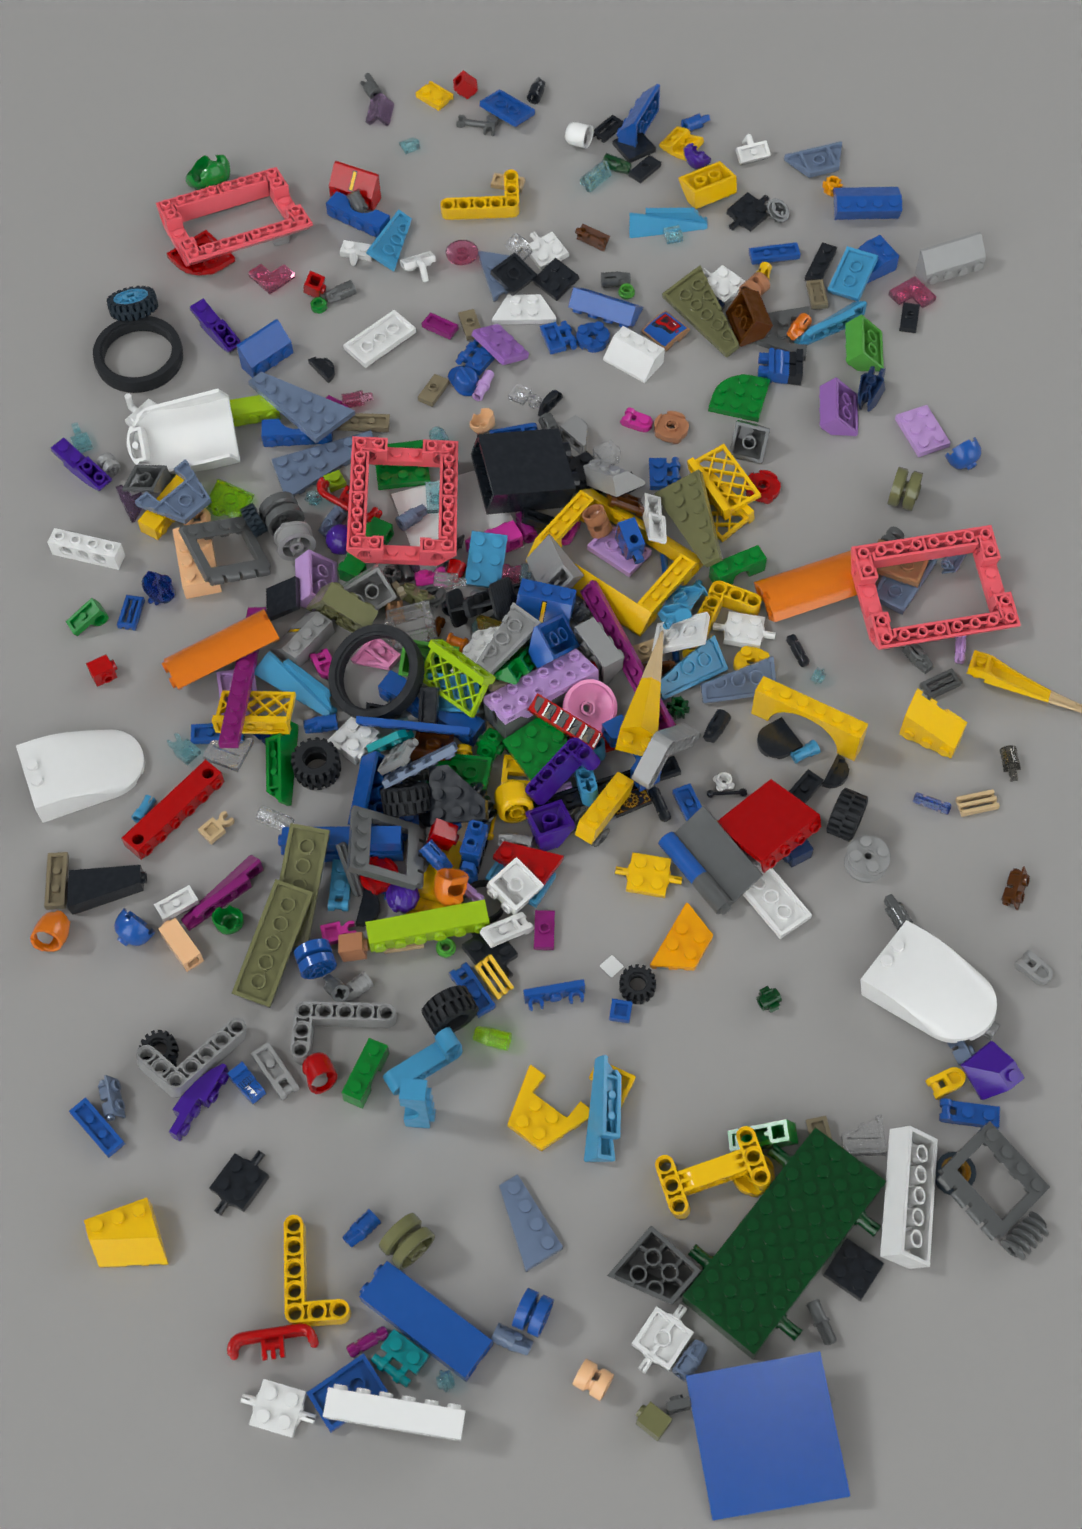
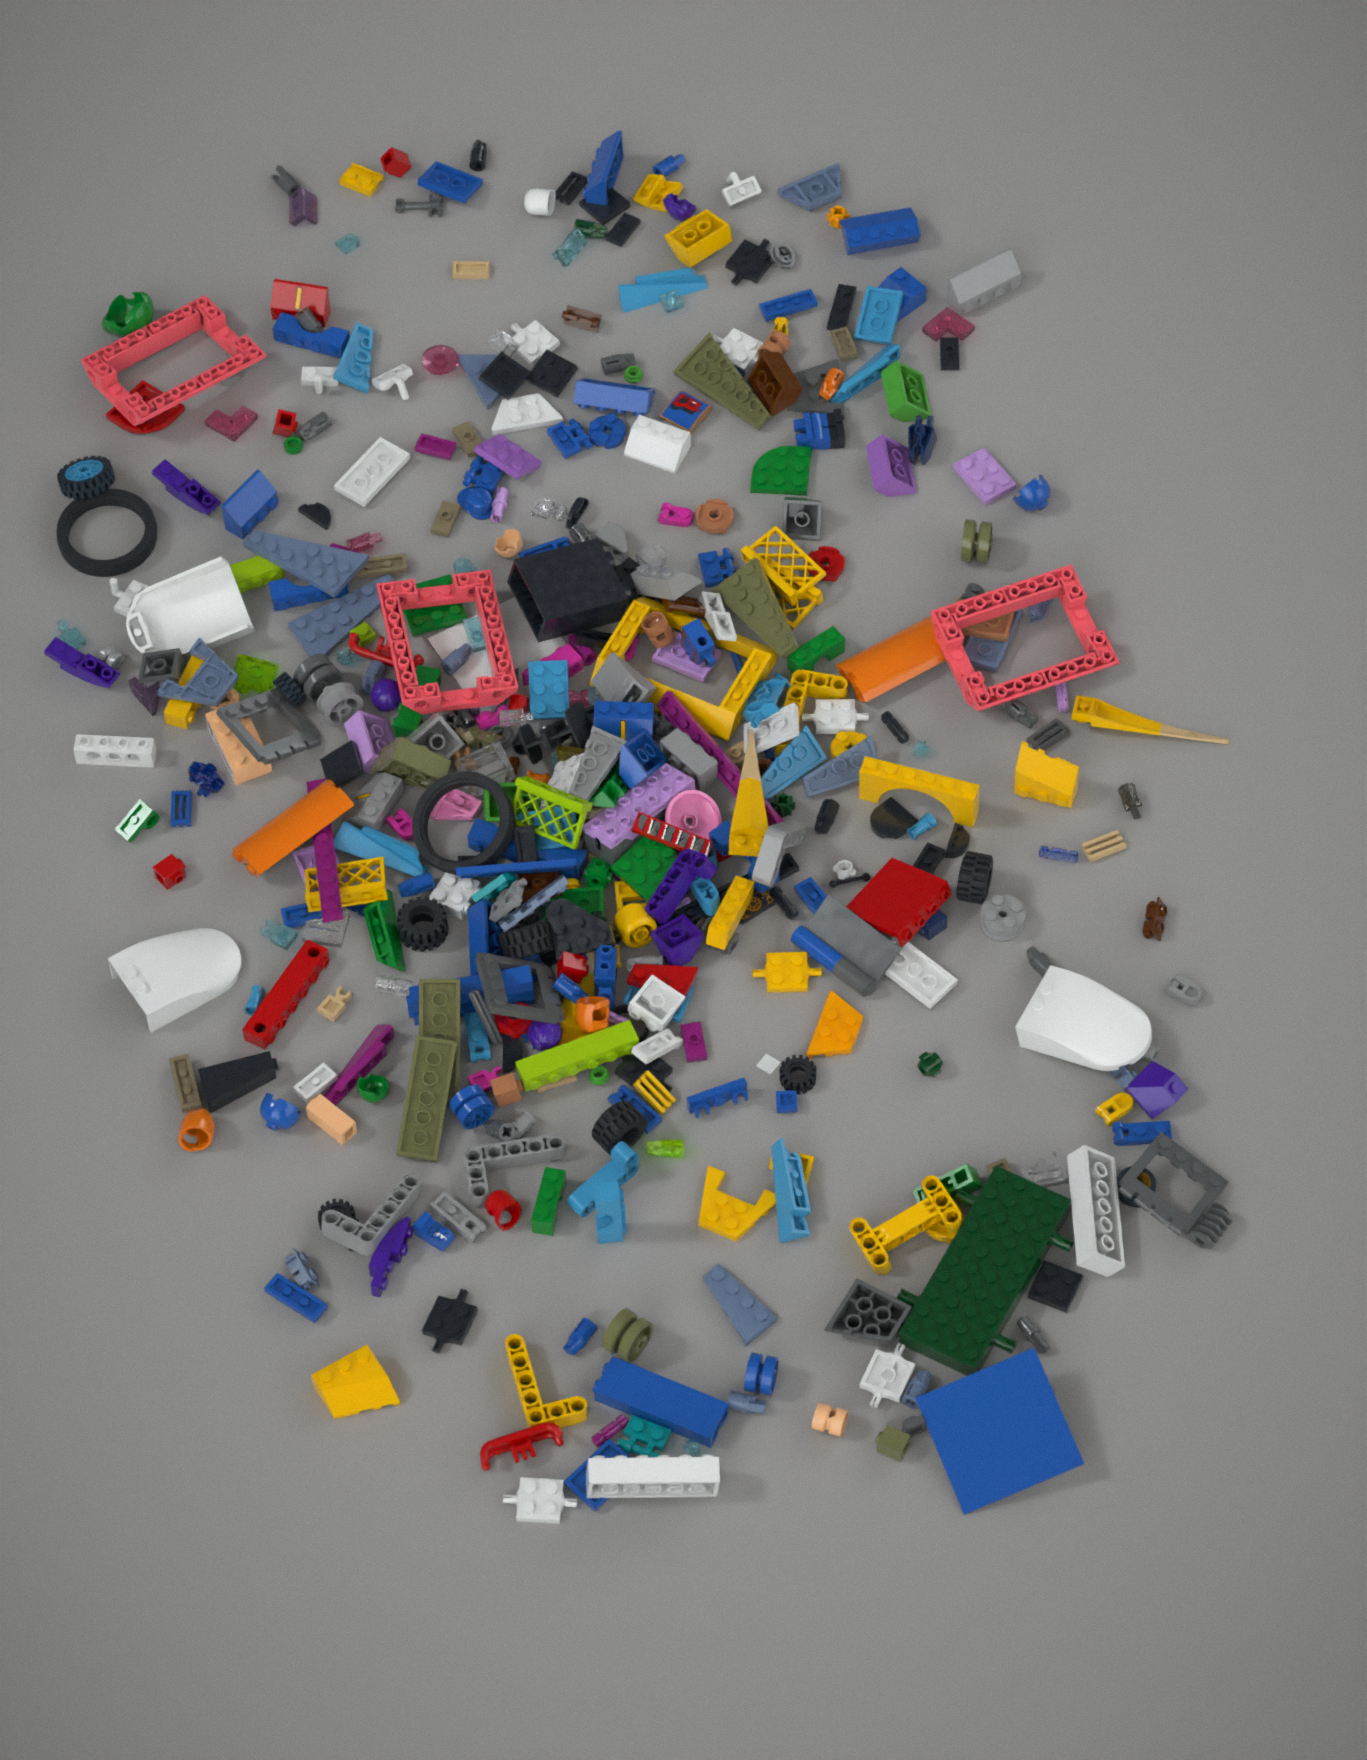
camera: 10 degrees left, 5 degrees down
(485, 206) = (453, 300): yellow beam -> none

